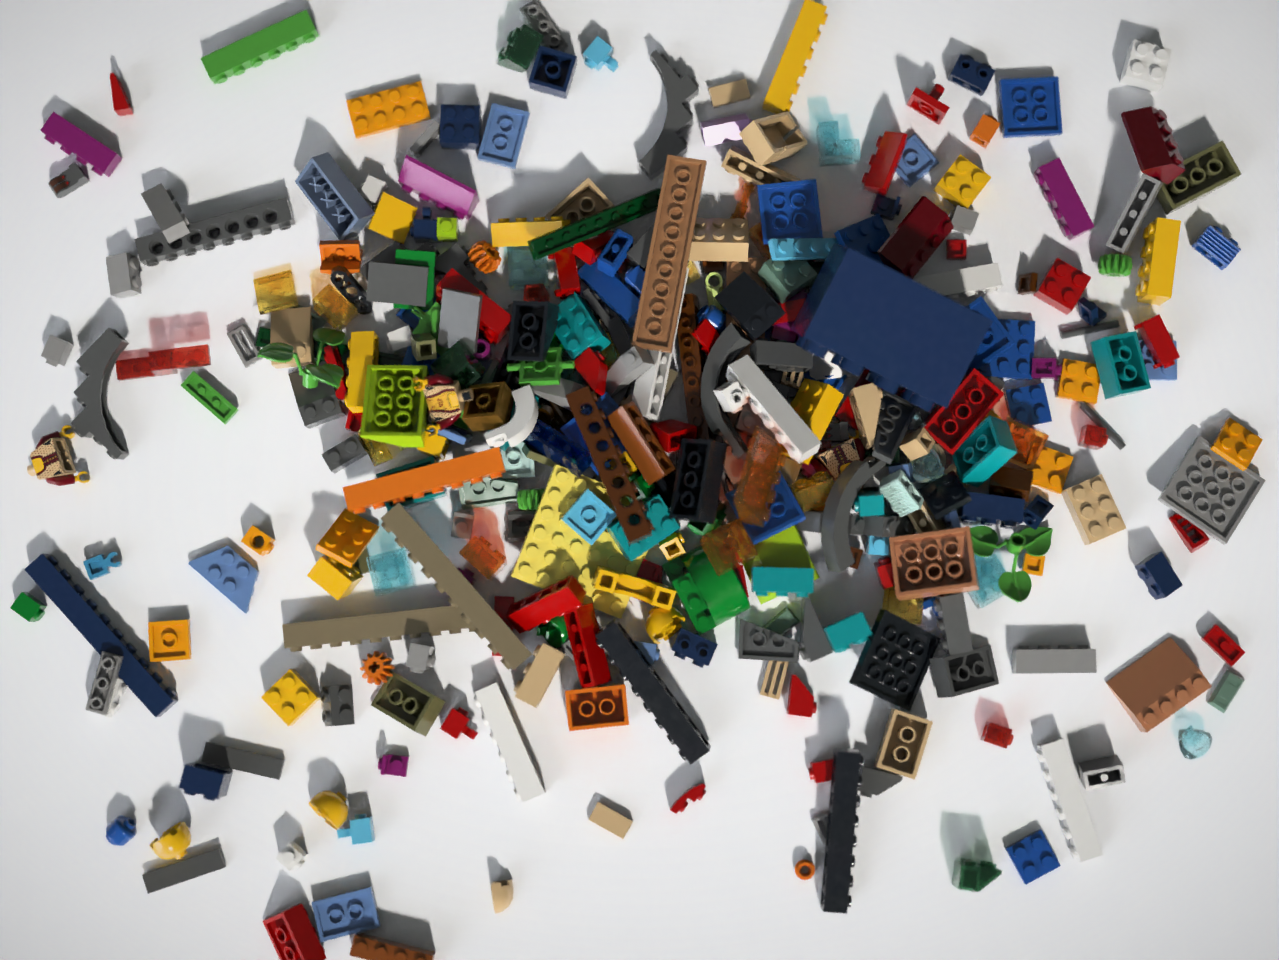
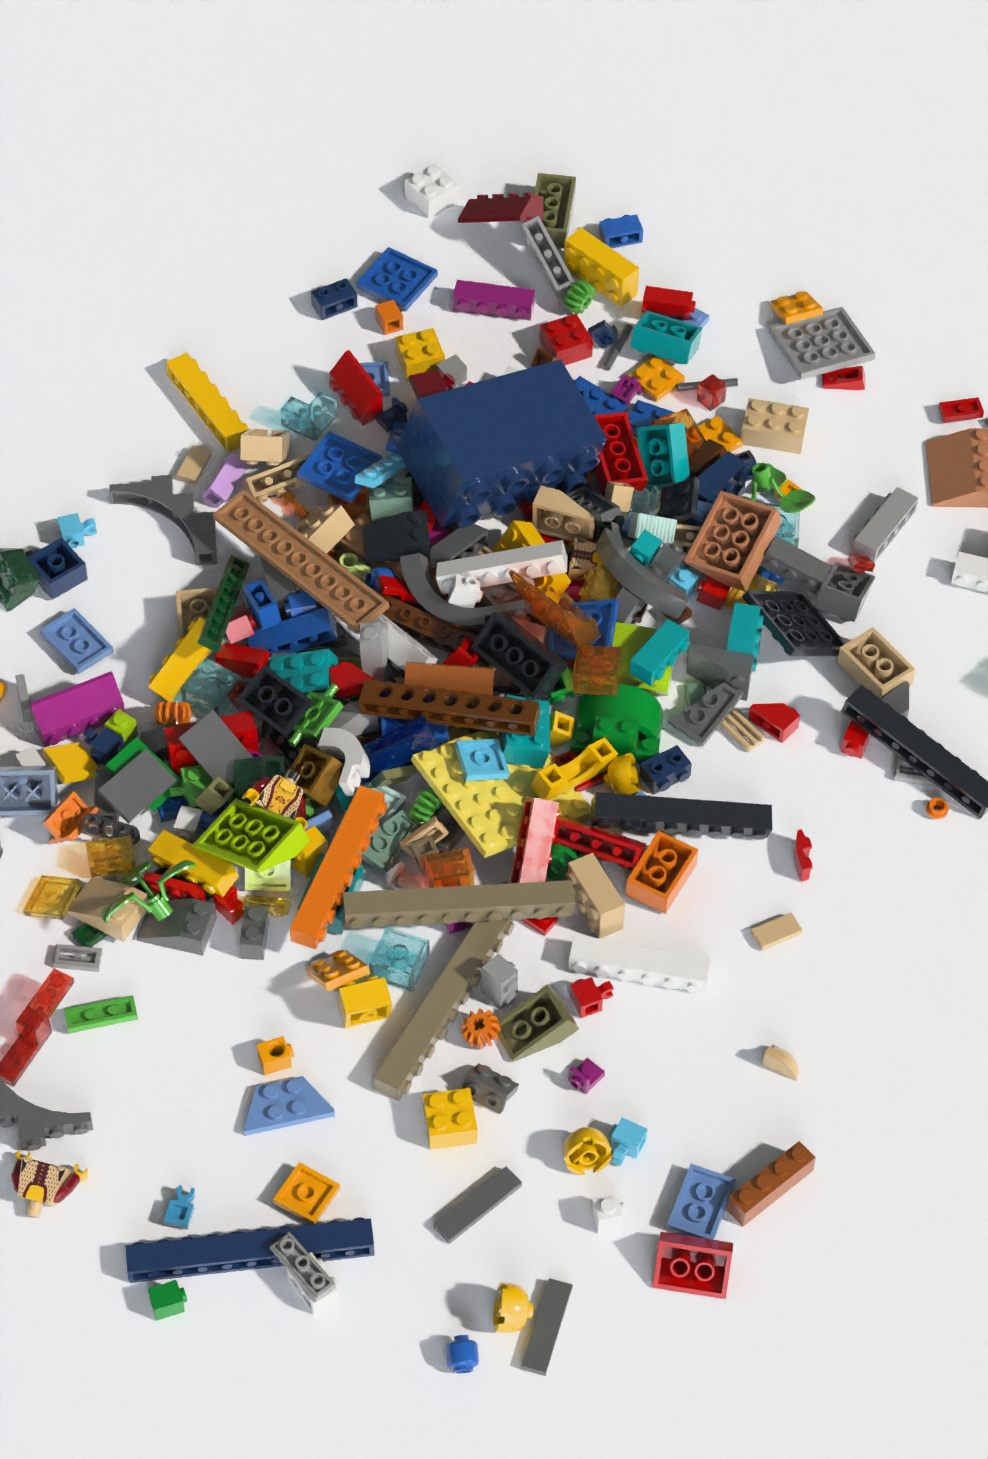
camera: 55 degrees left, 30 degrees down
(205, 780) = (472, 1238): dark blue brick -> none
(460, 127) = (40, 664): dark blue brick -> none
(491, 529) = (423, 848): none -> dark tan brick
(503, 517) = (424, 831): none -> tan tile
(928, 104) = (334, 335): red tile -> none
(997, 735) = (919, 600): clear red brick -> none
(1000, 666) = (861, 563): none -> clear red plate
(1158, 575) = (867, 415): dark blue brick -> none

